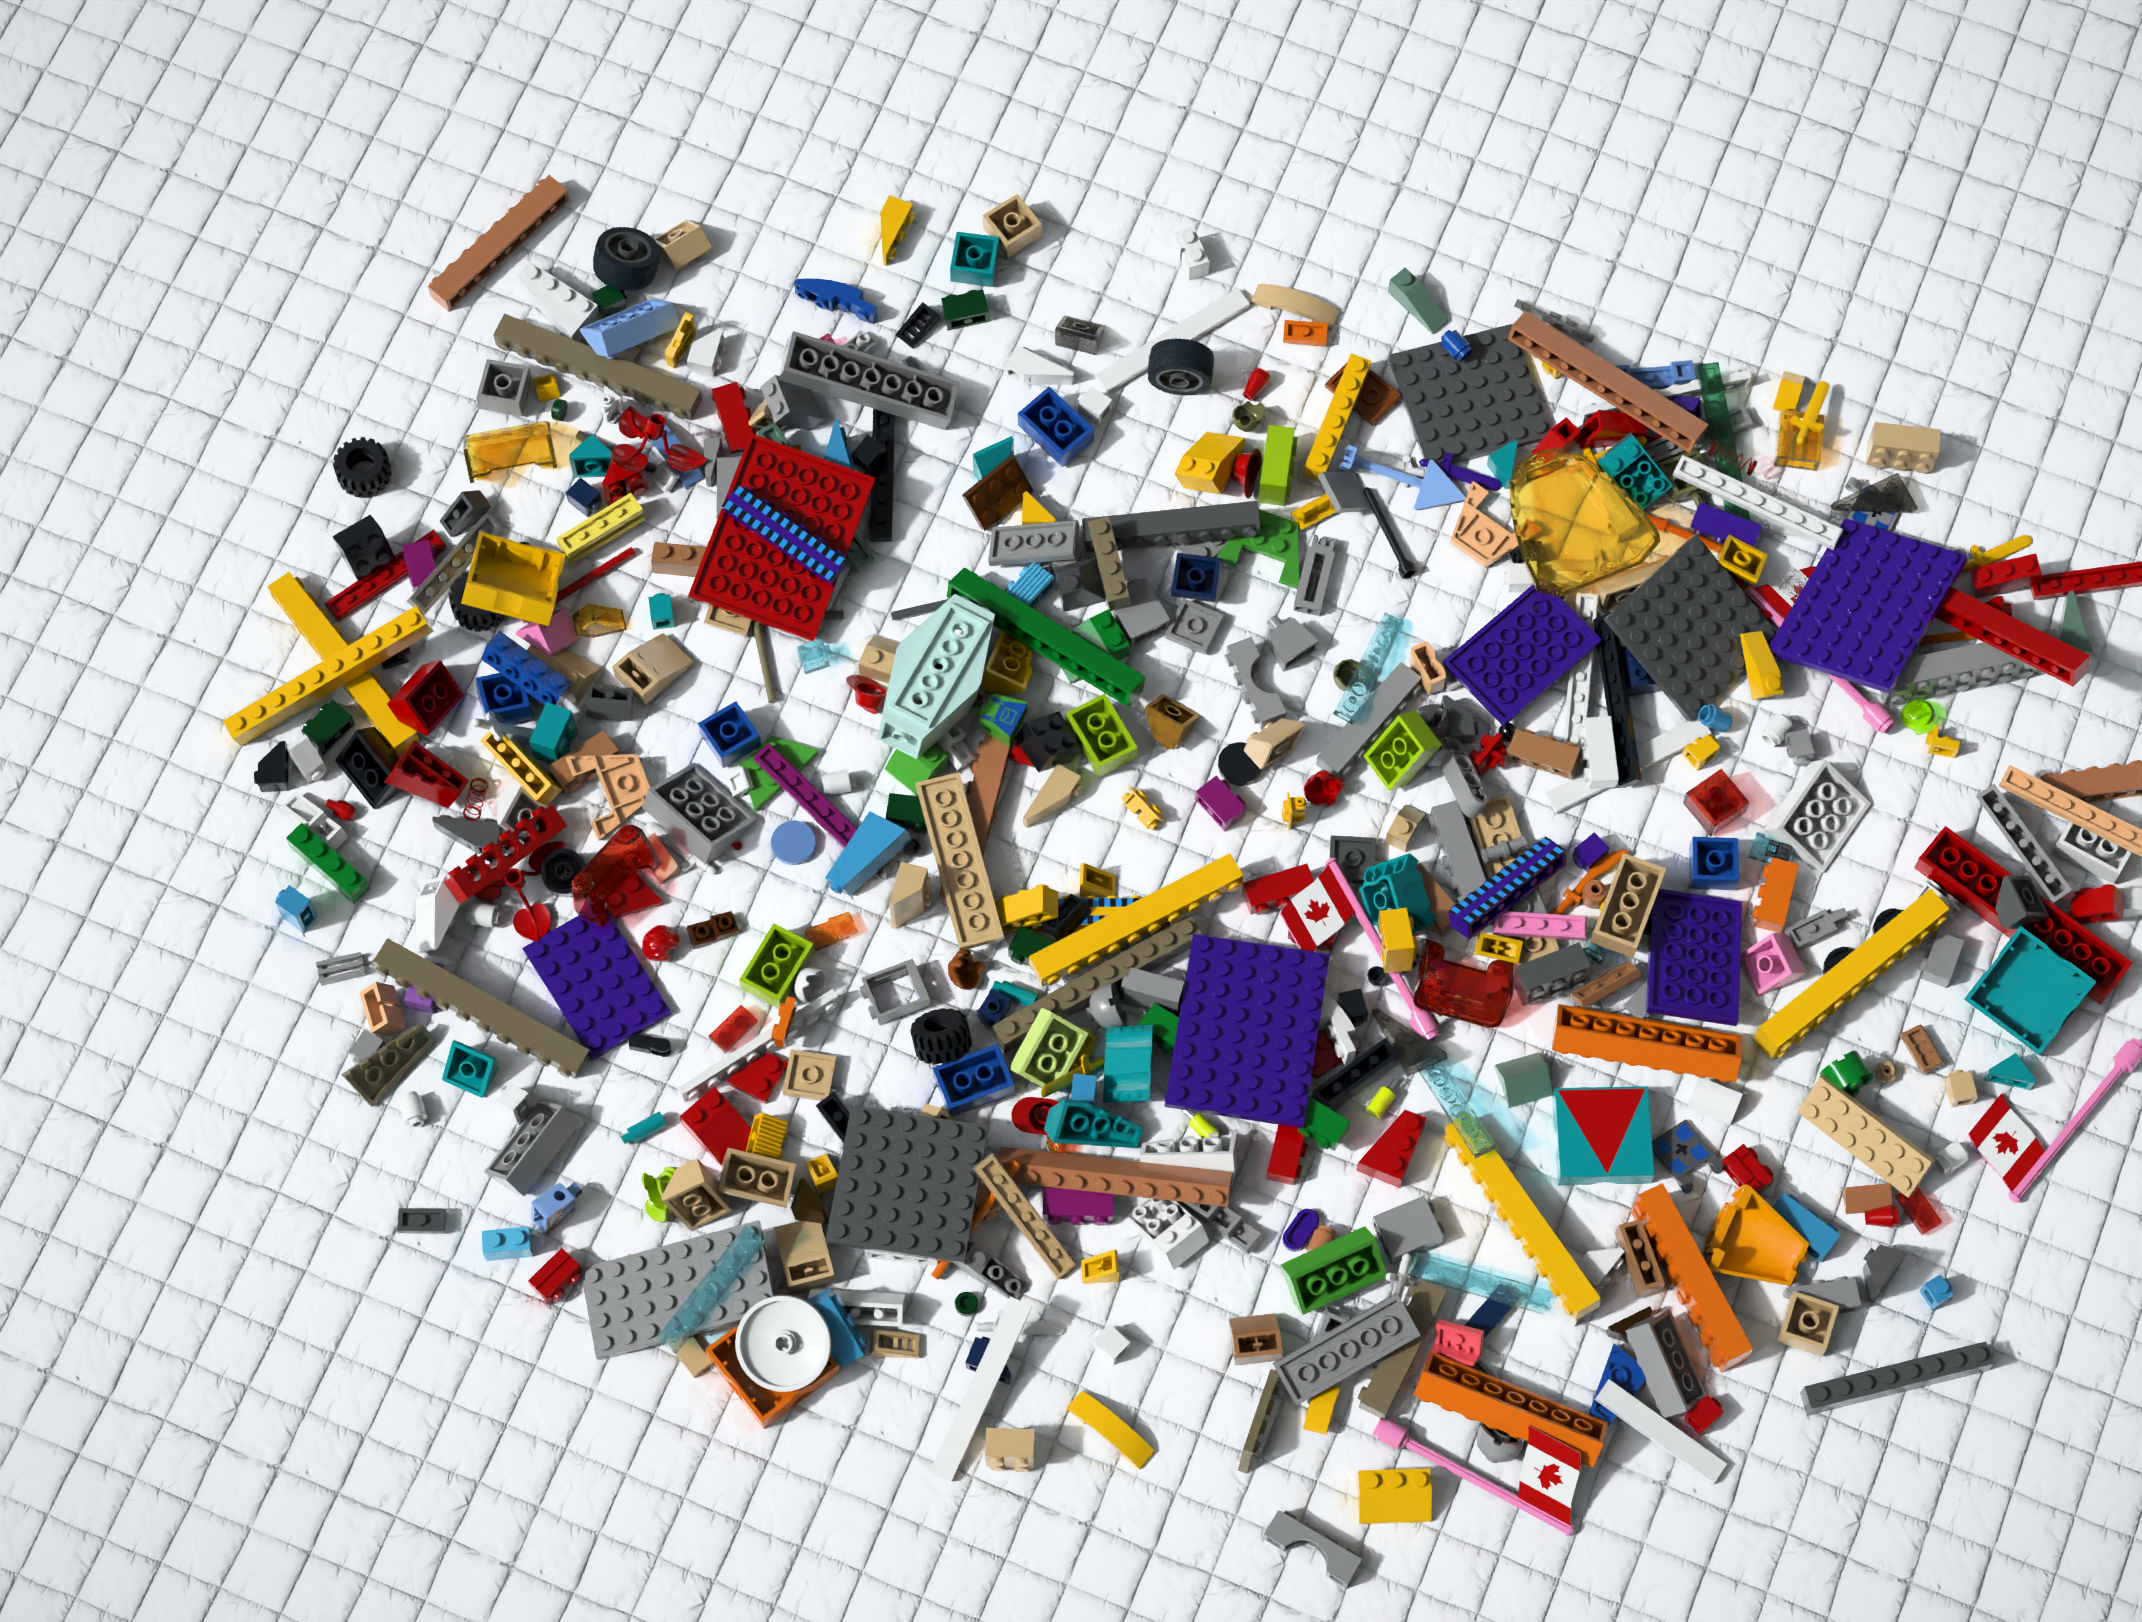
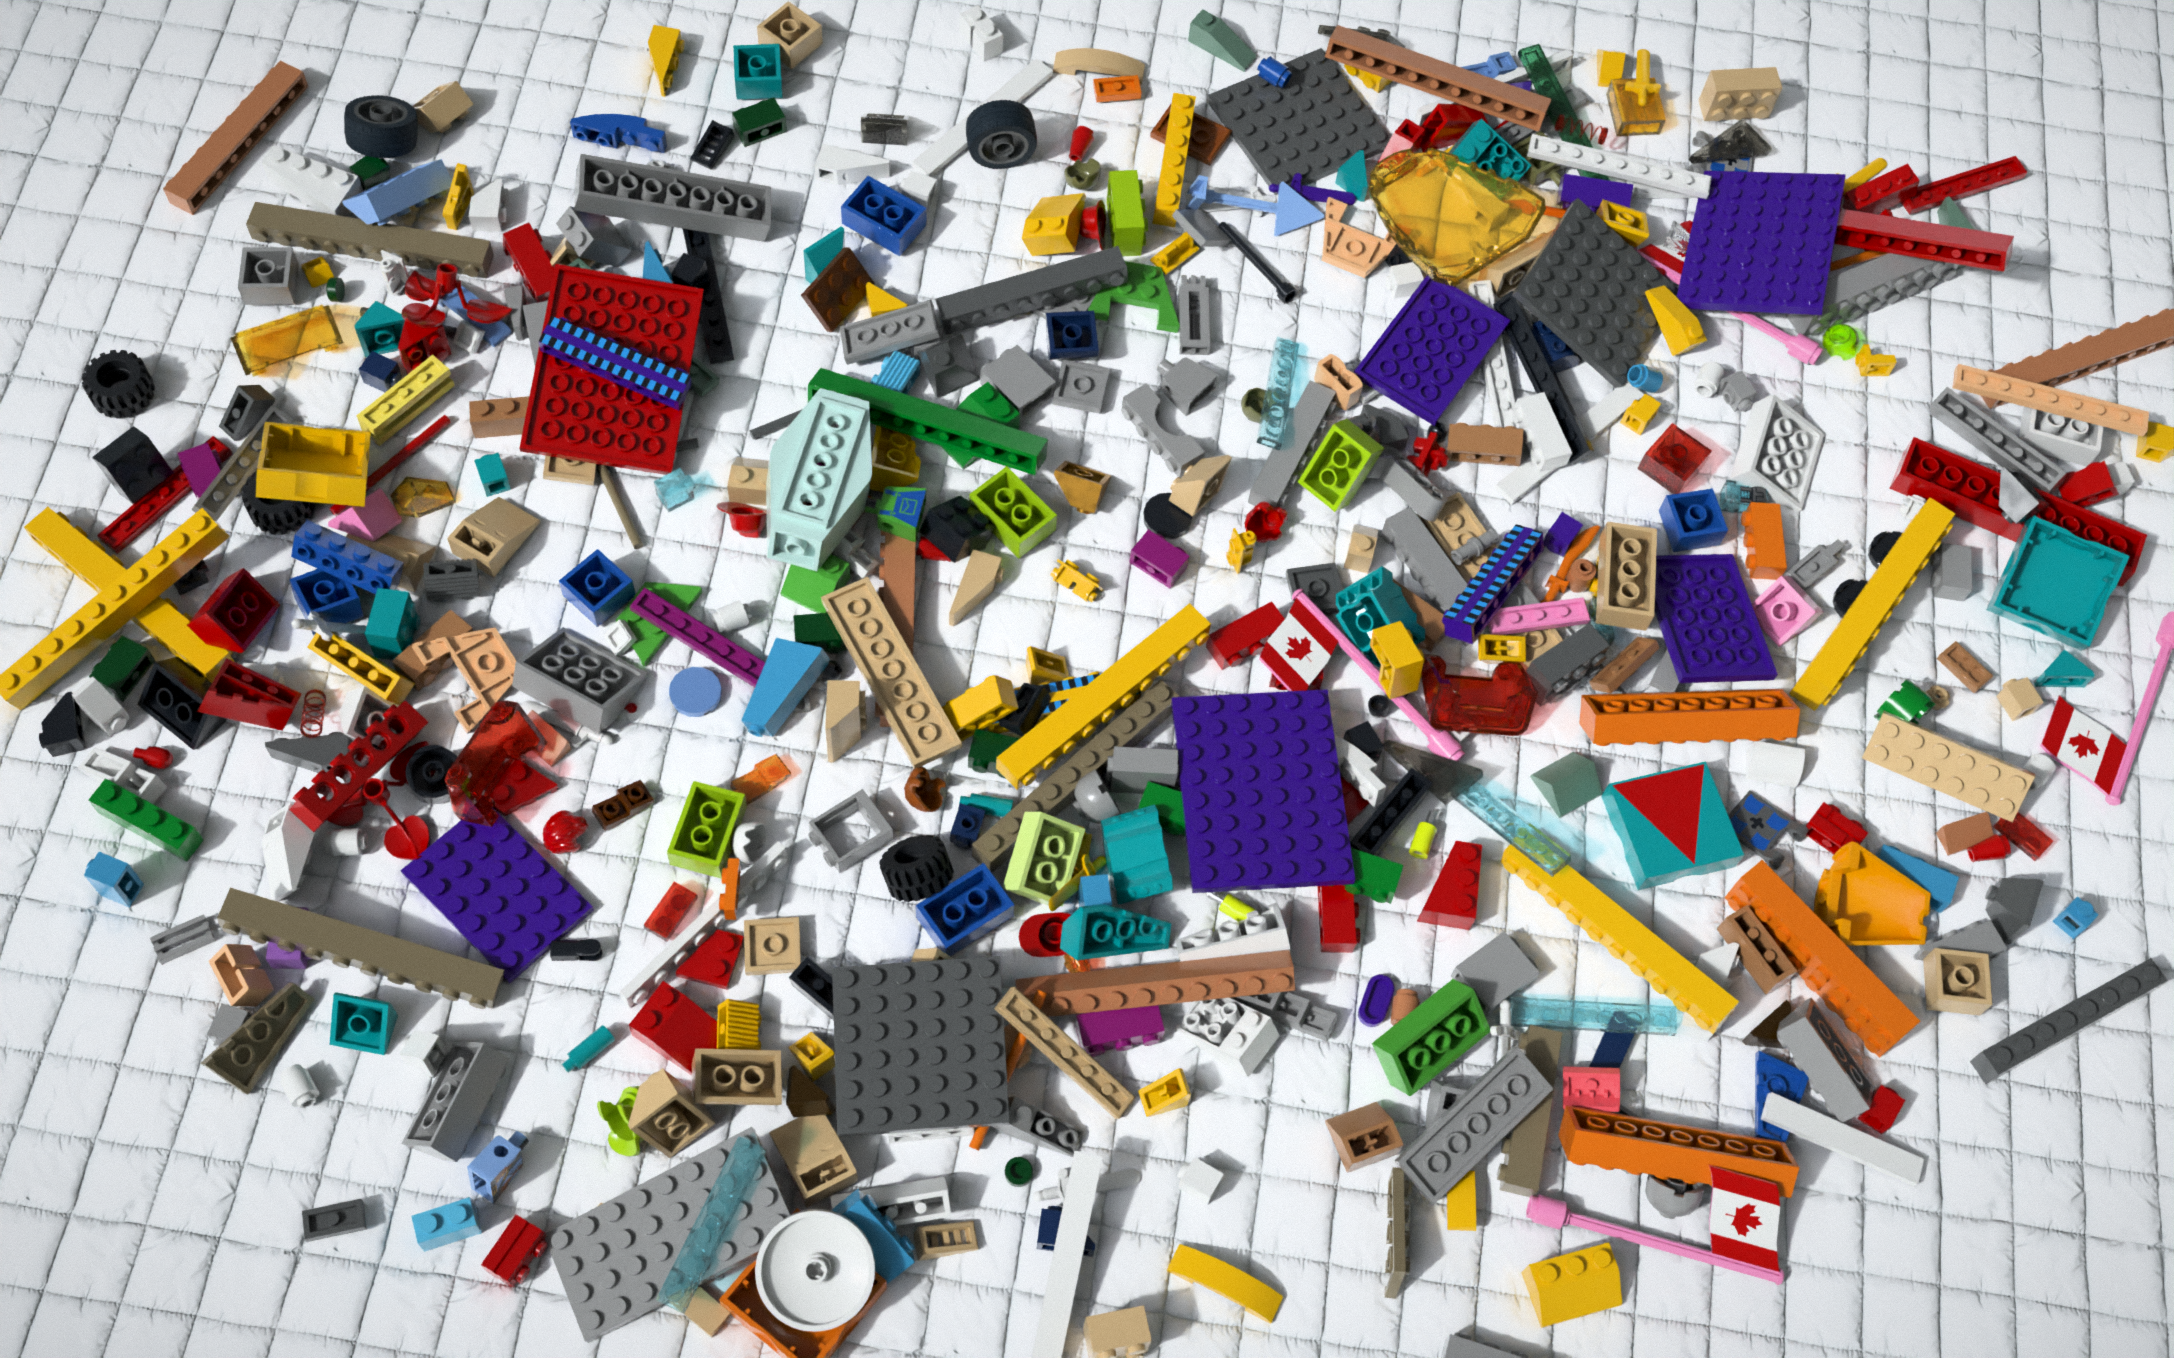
camera: 20 degrees left, 5 degrees down
(1109, 563) = (978, 334): dark tan brick -> none

